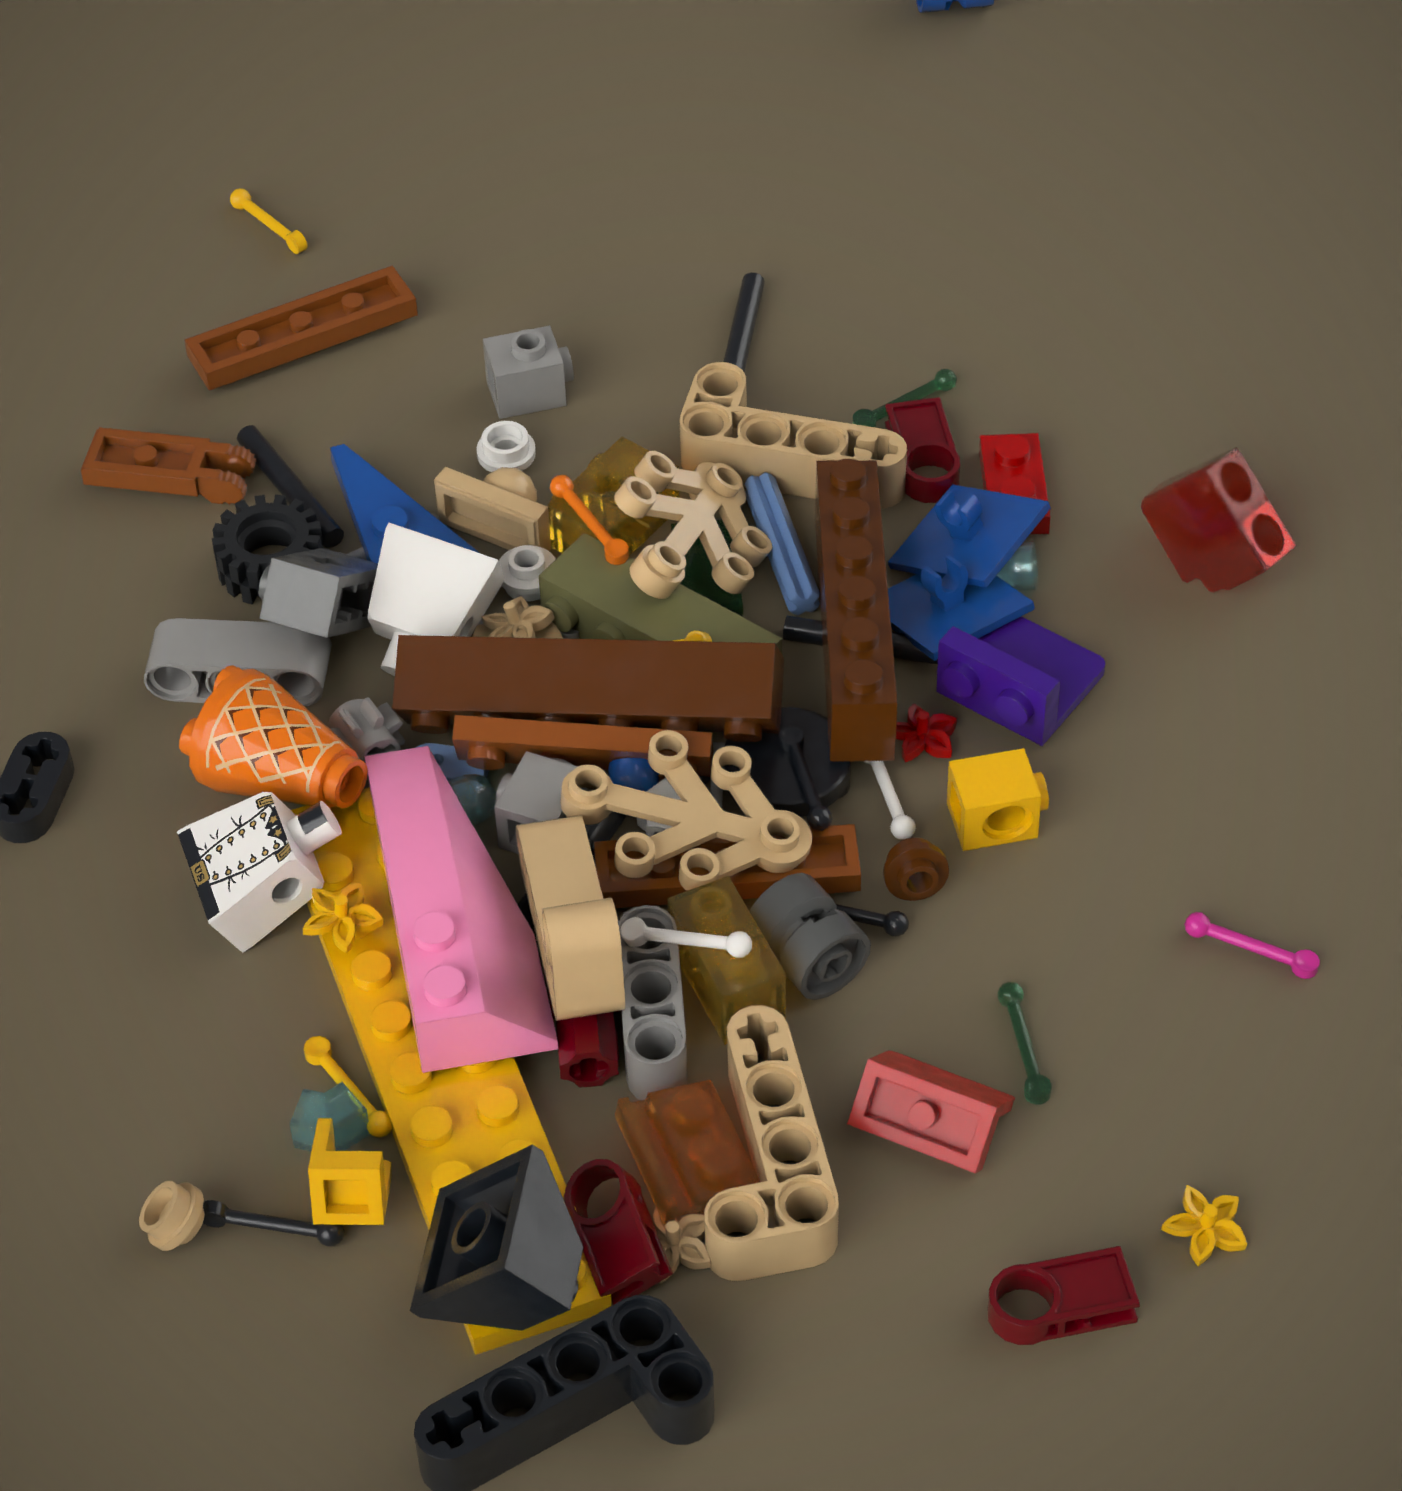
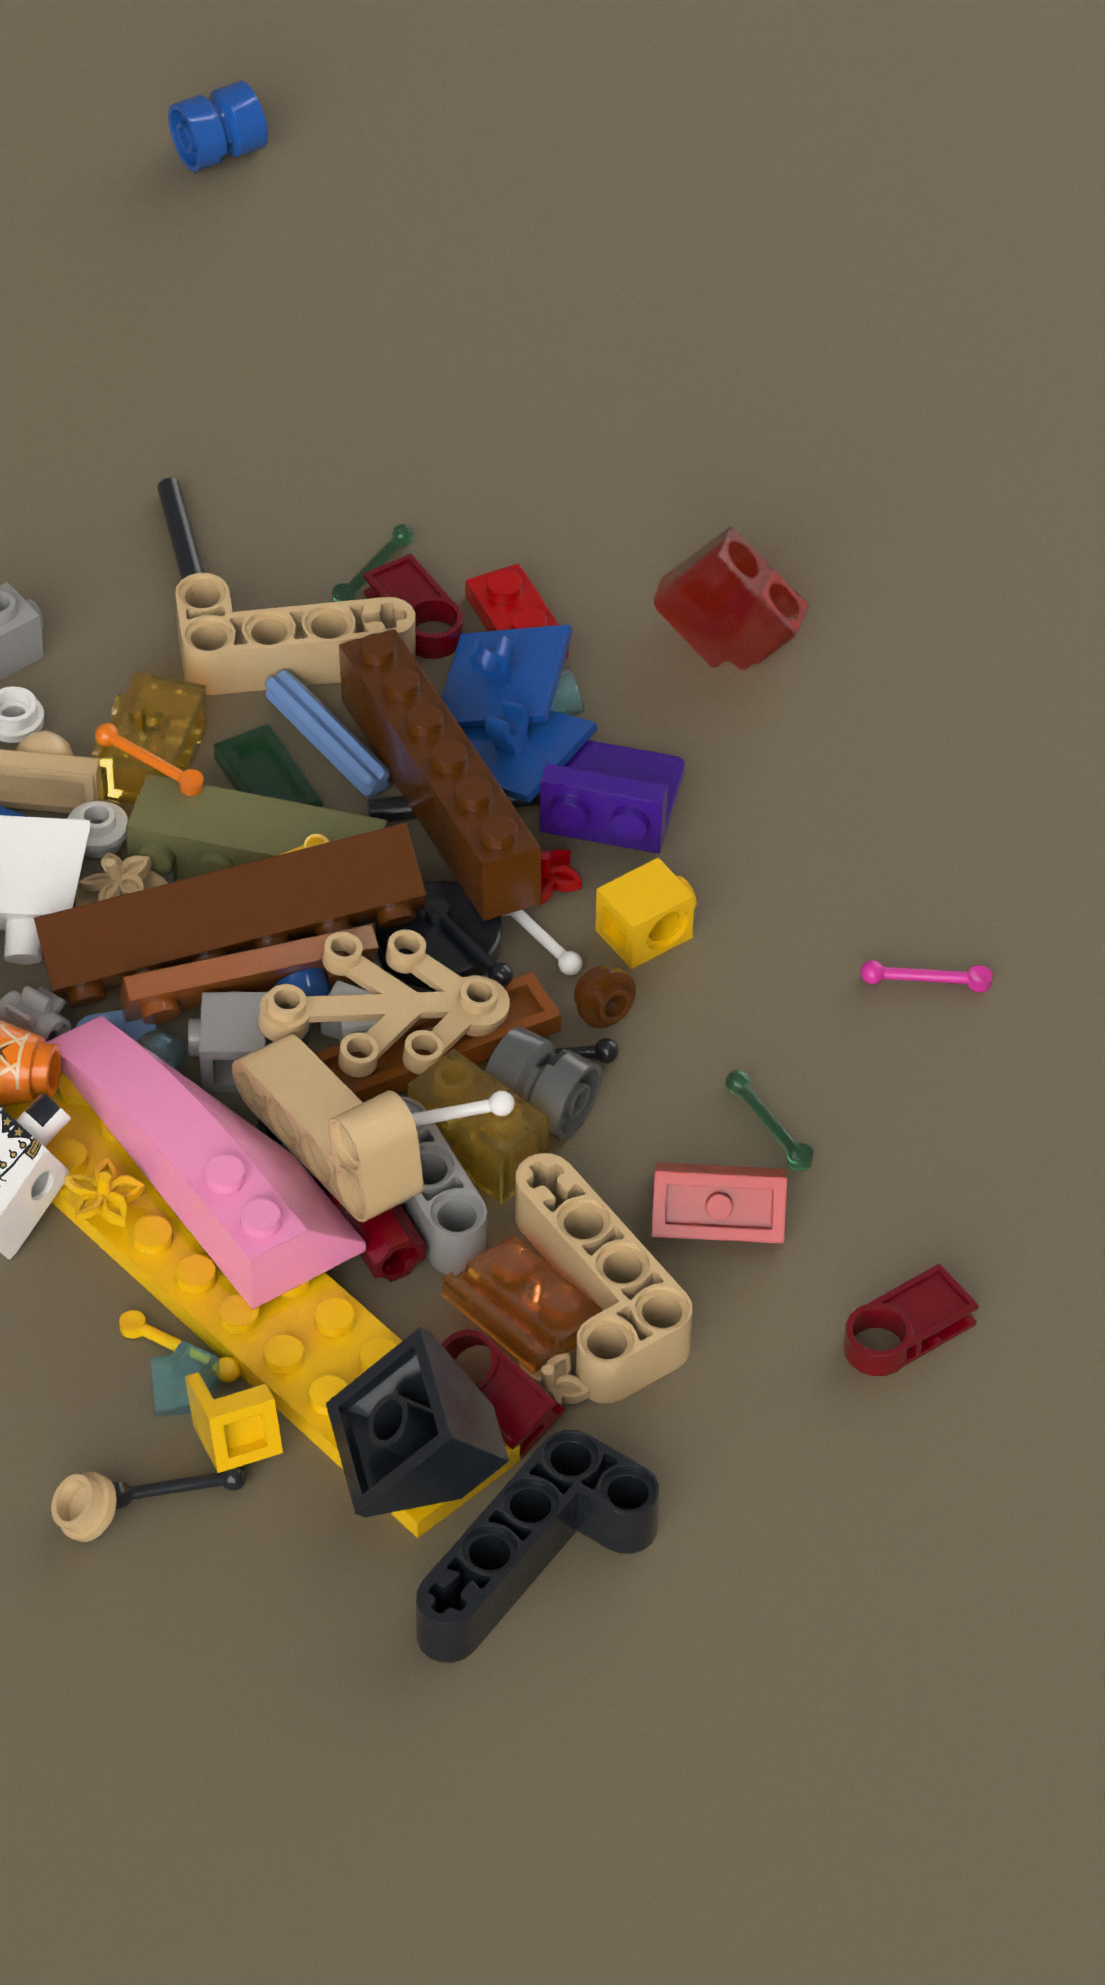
camera: 25 degrees left, 0 degrees up
(714, 493) = (245, 705): tan plant -> none
(1207, 1224) = (999, 1224): yellow plant -> none

